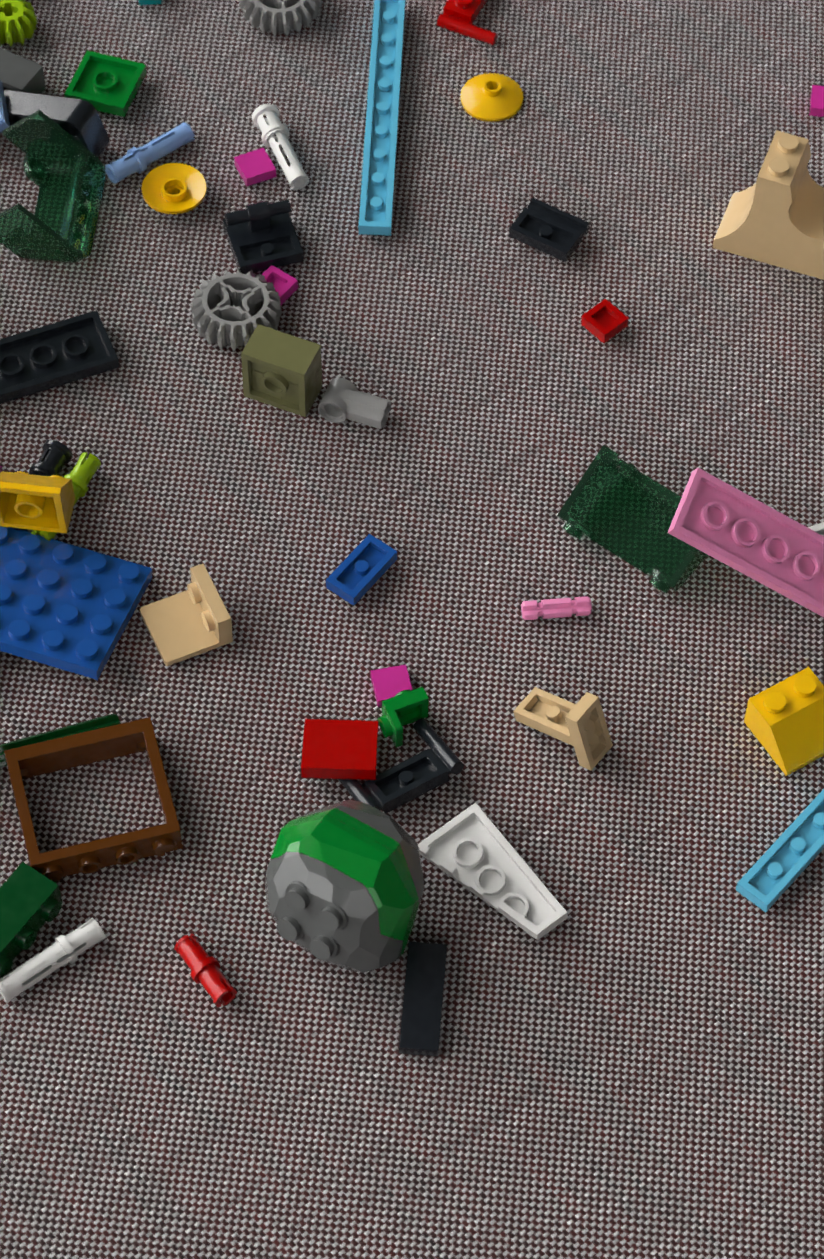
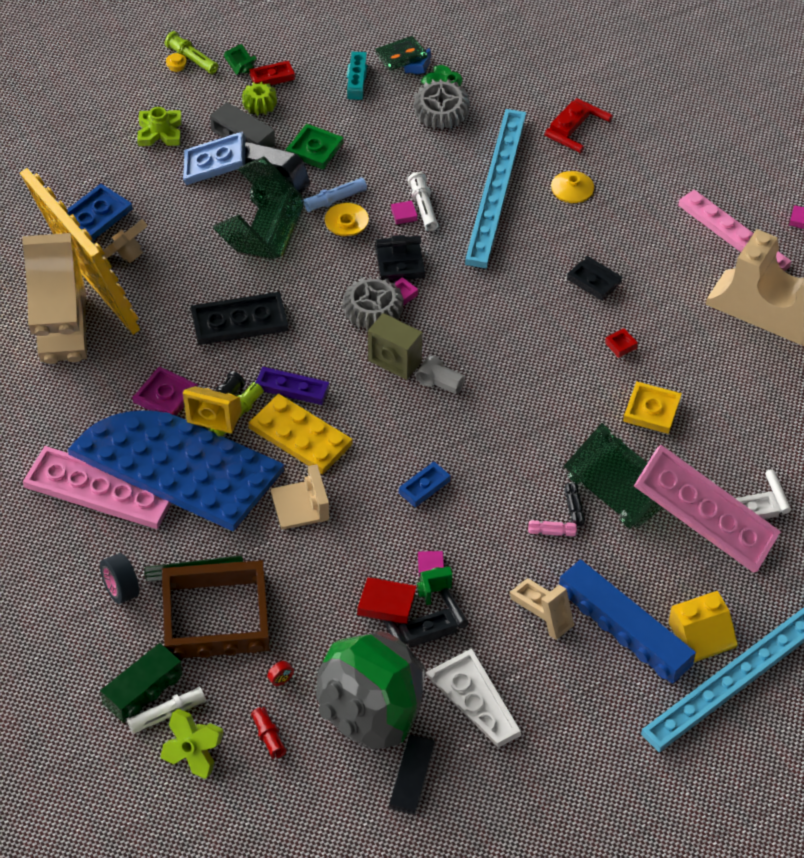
camera: 10 degrees right, 5 degrees down
(98, 1003) = (191, 743): none -> lime plant
(142, 449) = (293, 385): none -> dark purple plate
(166, 518) = (300, 433): none -> yellow plate
(206, 880) = (280, 673): none -> red tile
(581, 568) = (574, 504): none -> black axle
(666, 410) = (652, 407): none -> yellow plate
(687, 730) = (627, 622): none -> blue brick
(716, 125) = (722, 223): none -> bright pink plate

